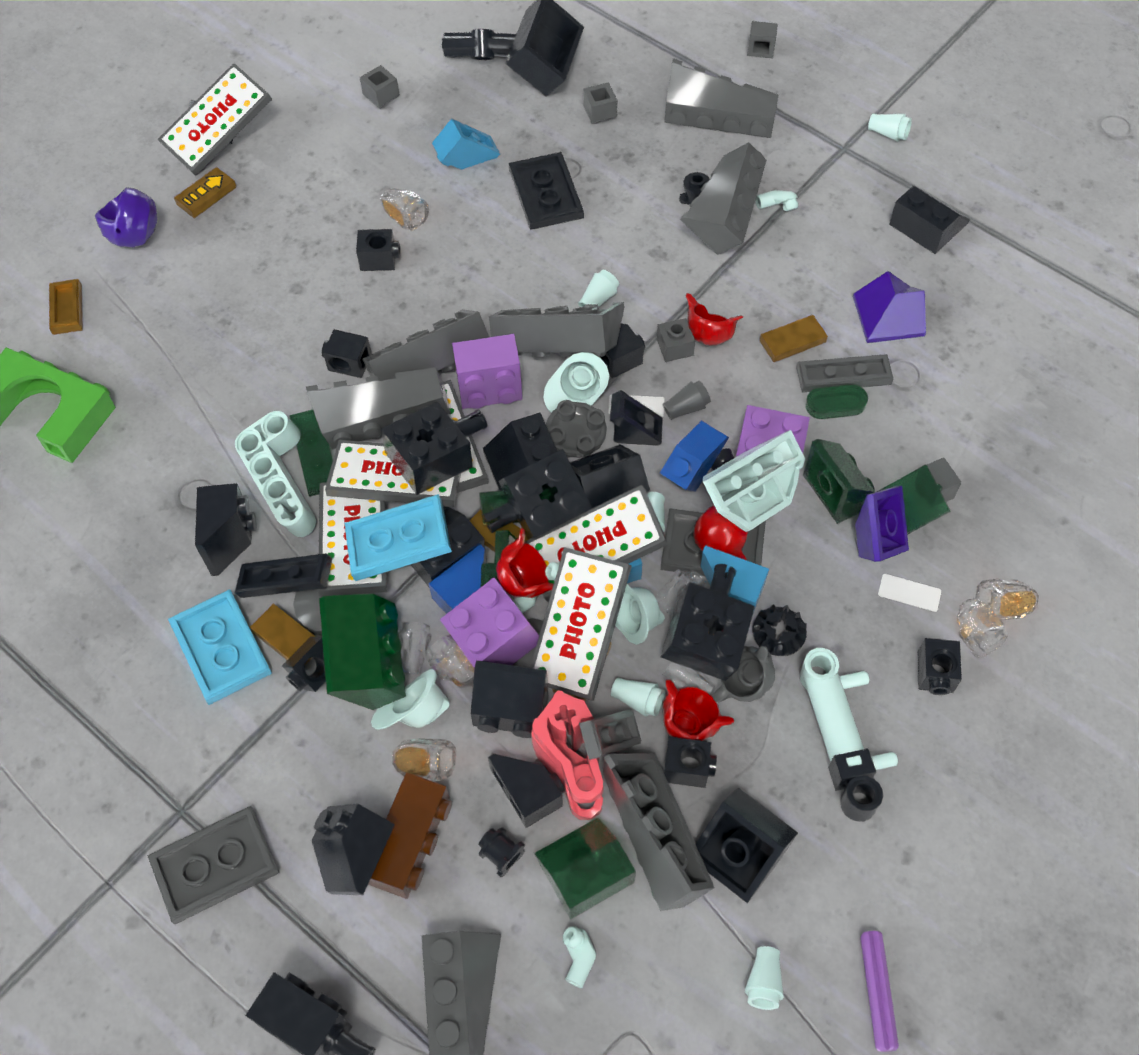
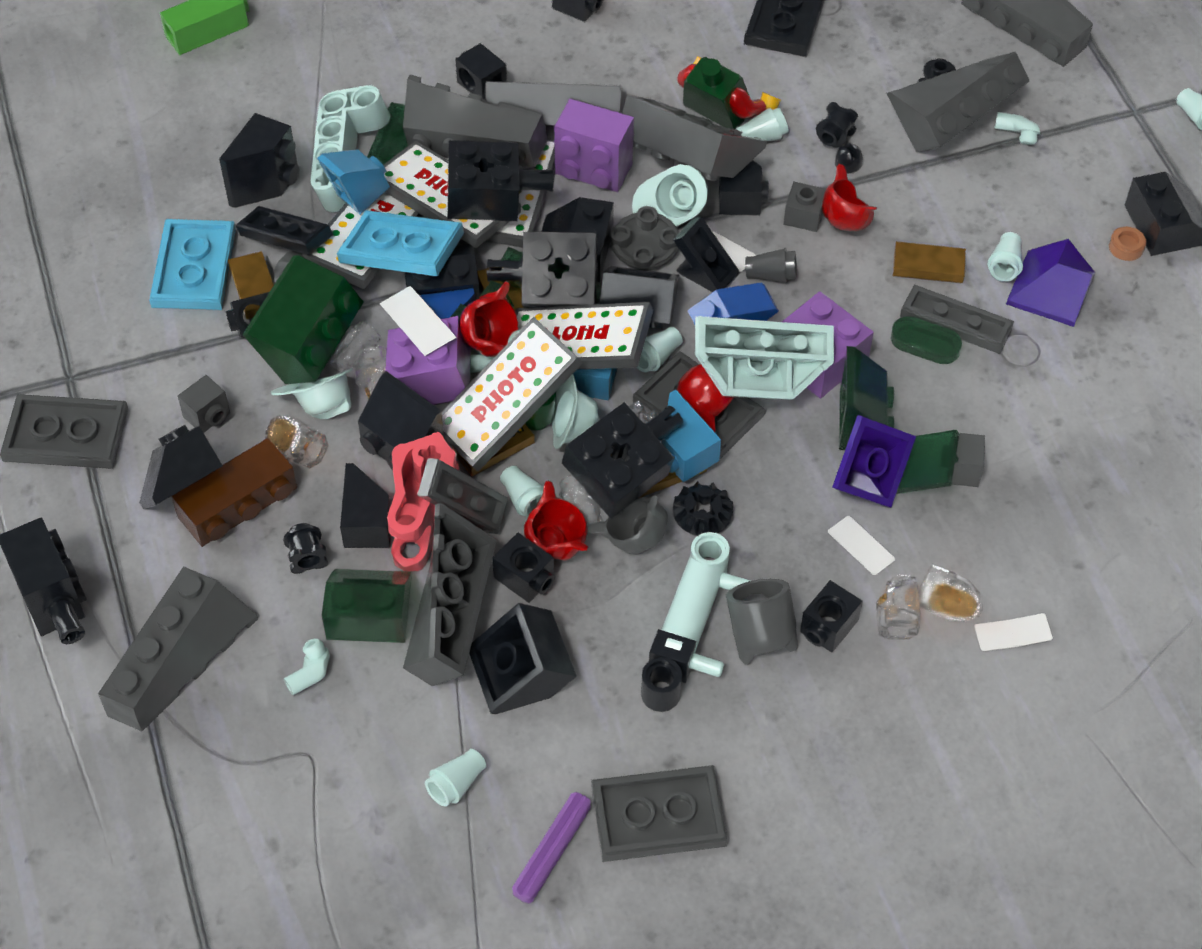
camera: 30 degrees right, 5 degrees down
(321, 500) = (355, 177): none -> dark azure slope
(324, 770) = (204, 404): none -> dark grey plate
(464, 599) = (417, 320): none -> white sticker
(549, 279) = (720, 93): none -> dark green torso
(651, 262) = (837, 125): none -> black brick
(676, 284) = (845, 157): none -> black hinge
(847, 307) = (1006, 259): none -> light aqua cone
(905, 703) = (765, 623): none -> dark grey piece
(915, 253) = (1127, 243): none -> nougat tile
(932, 908) = (658, 813): none -> dark grey tile
(1062, 600) = (1013, 632): none -> white sticker

